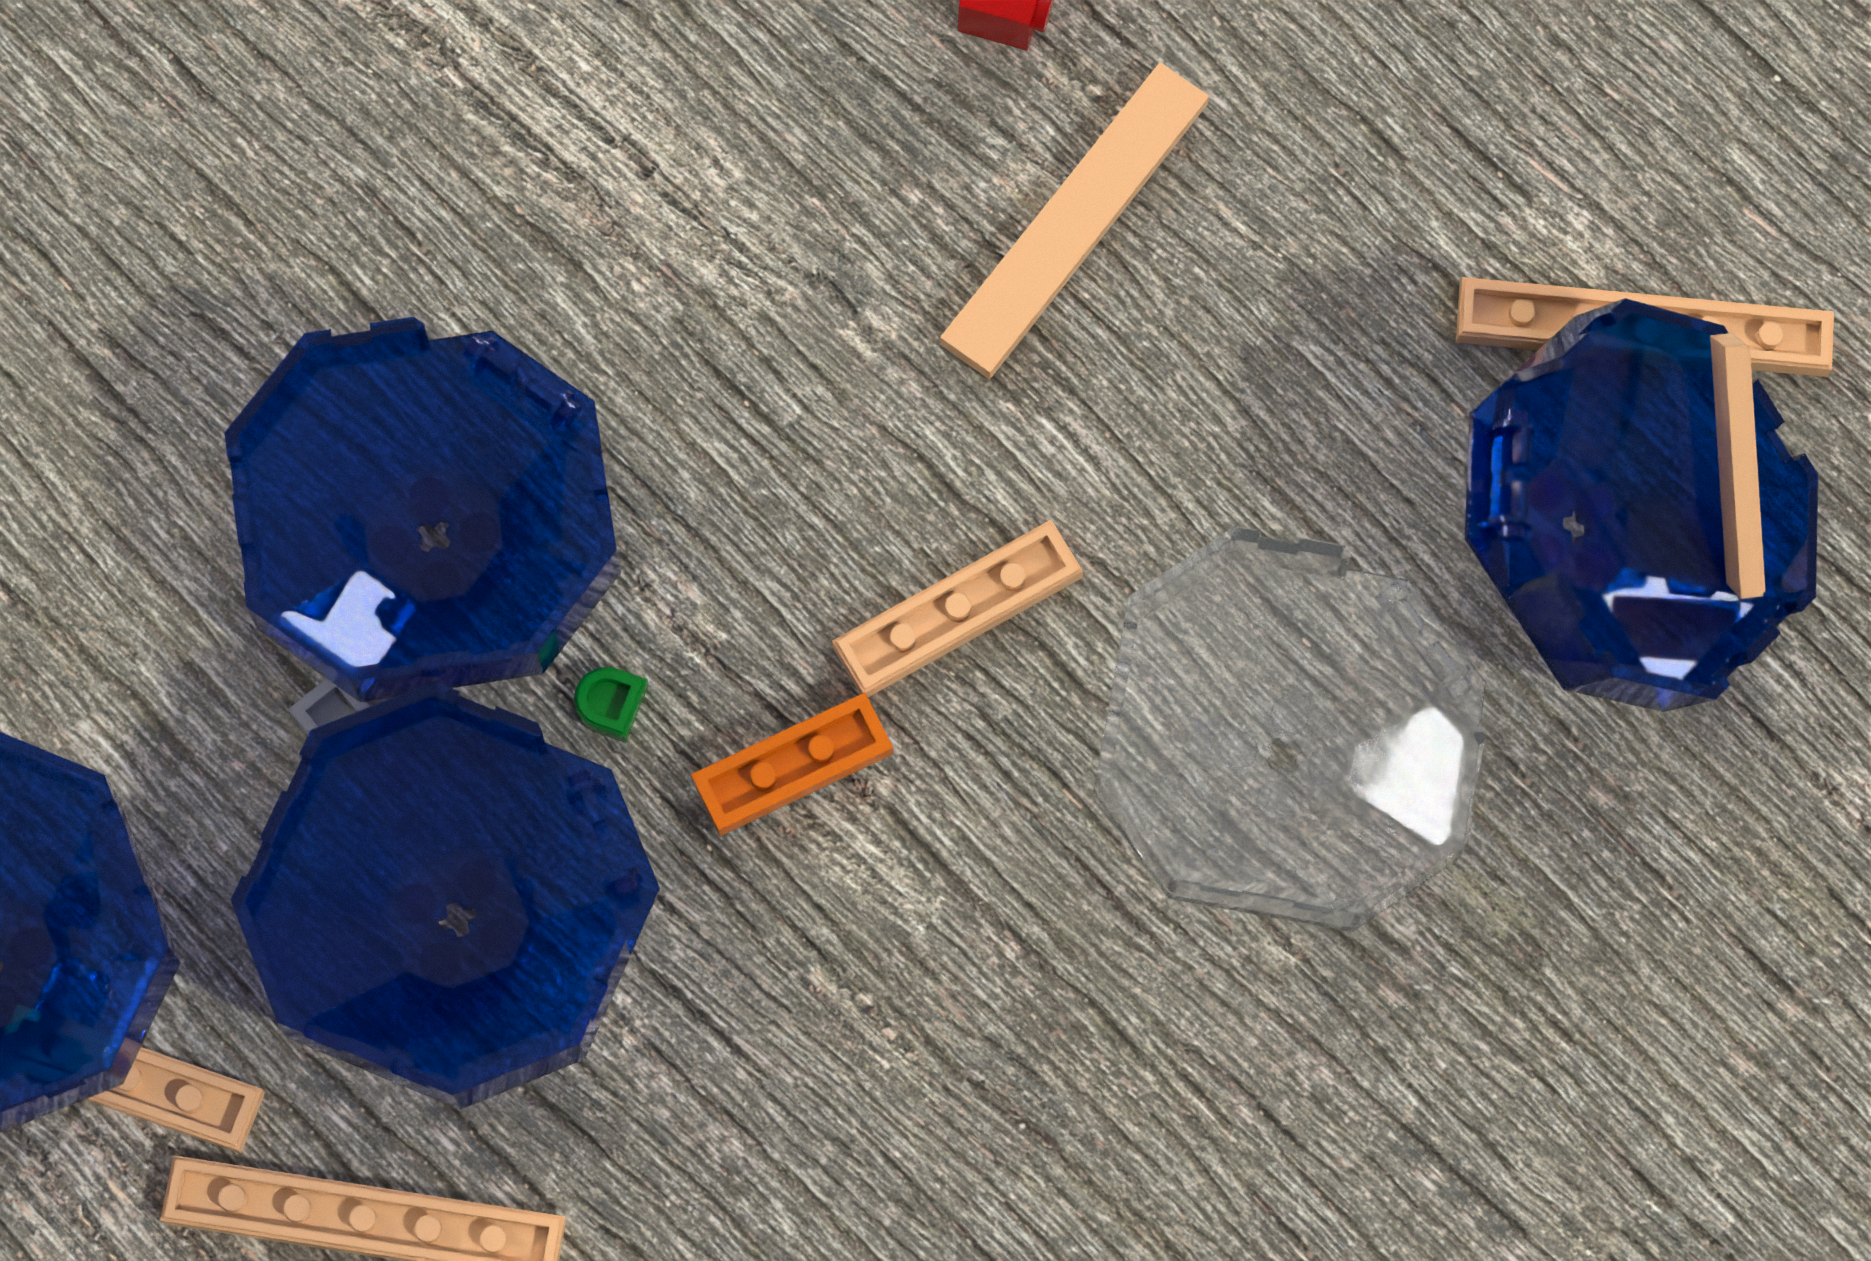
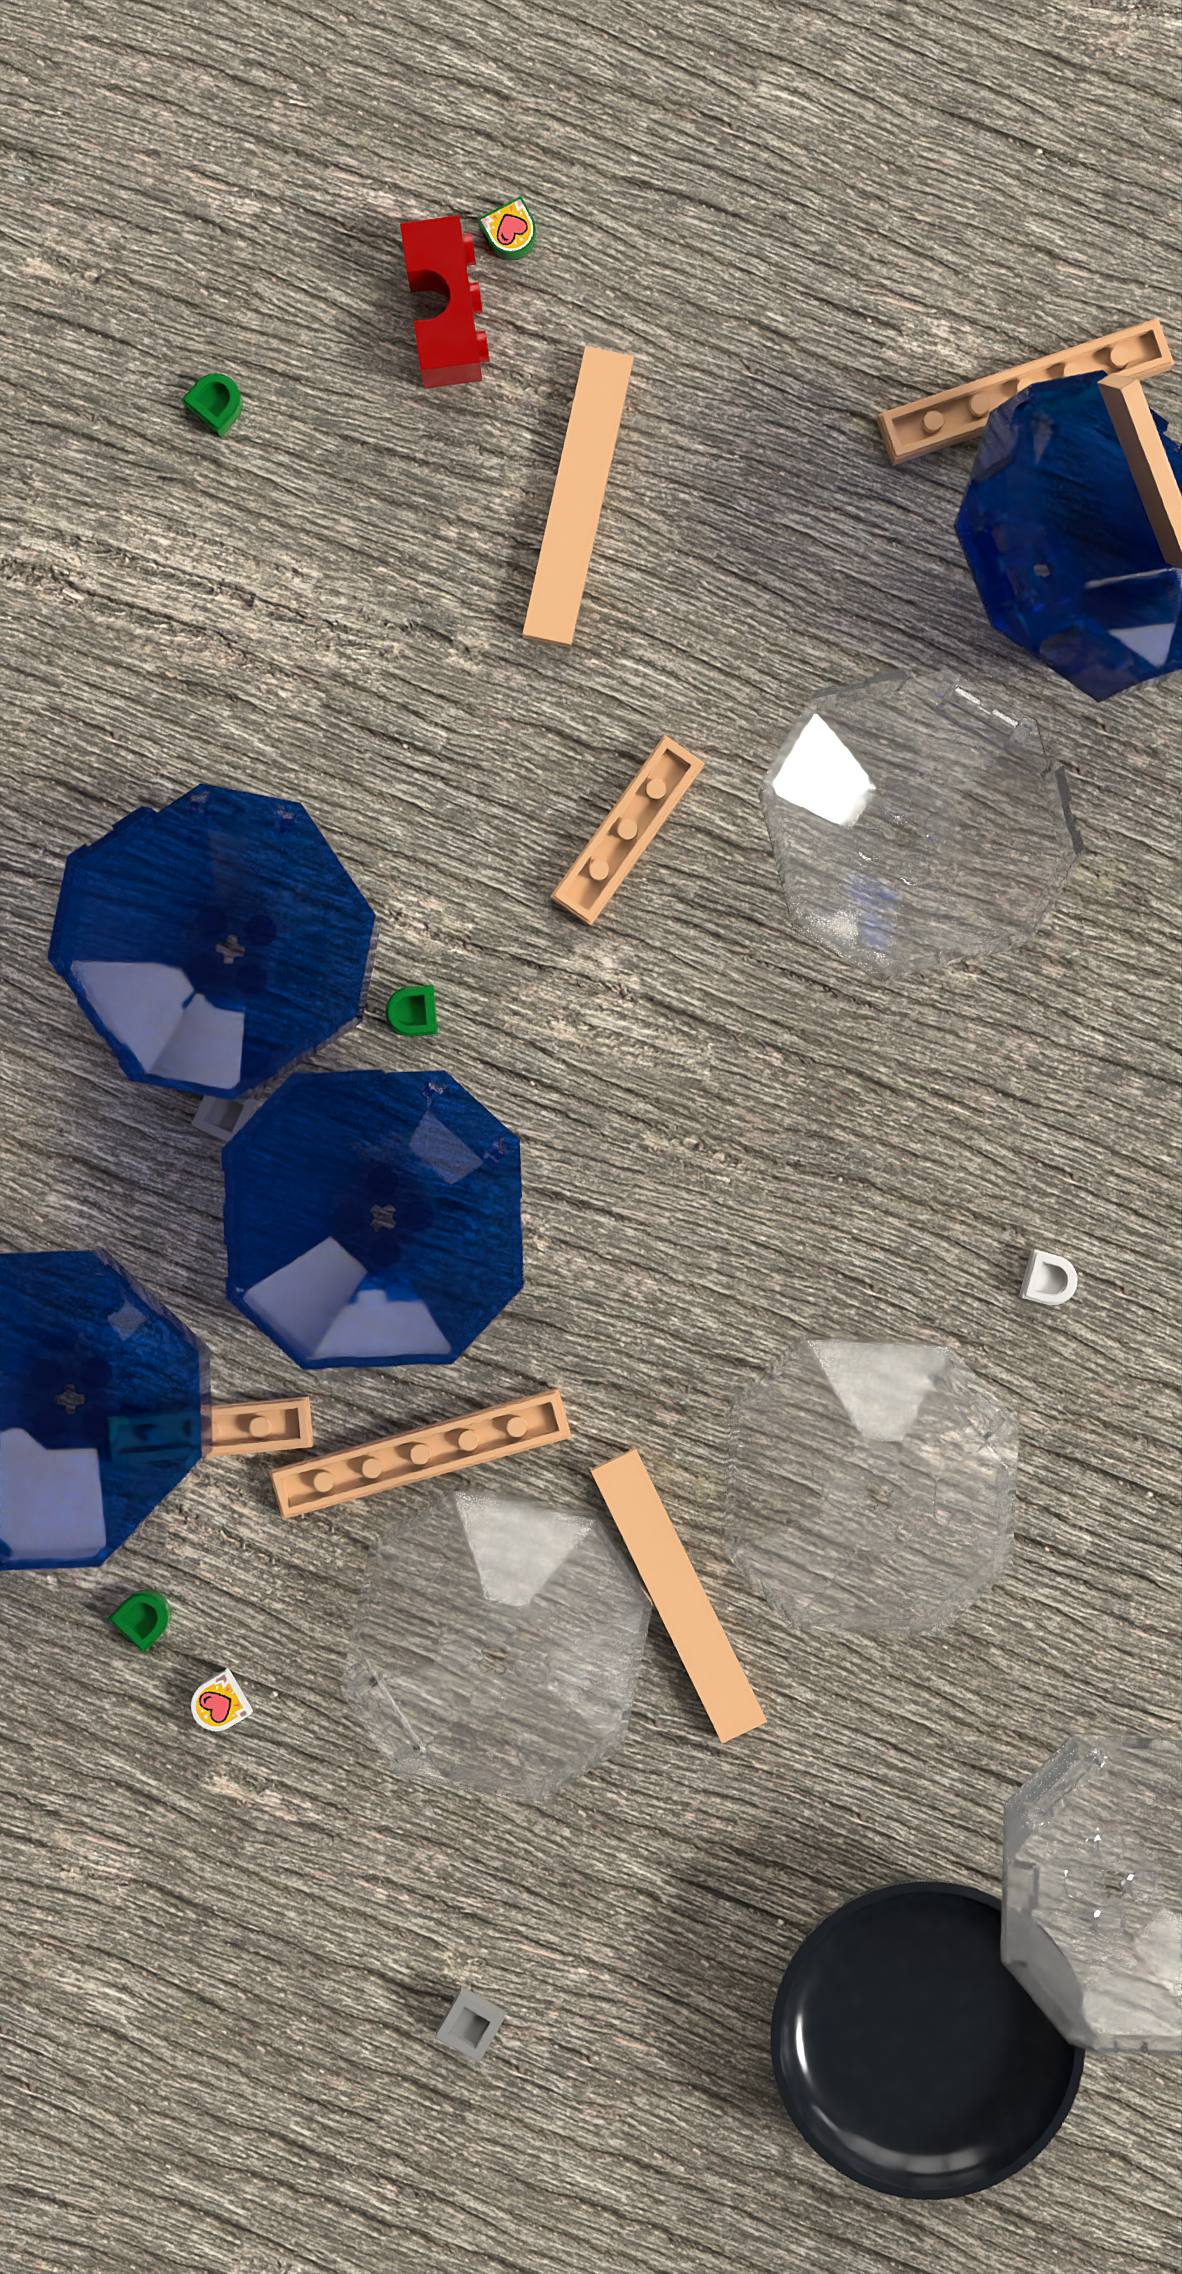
camera: 25 degrees left, 15 degrees up
(792, 764) = (564, 999): orange plate -> none

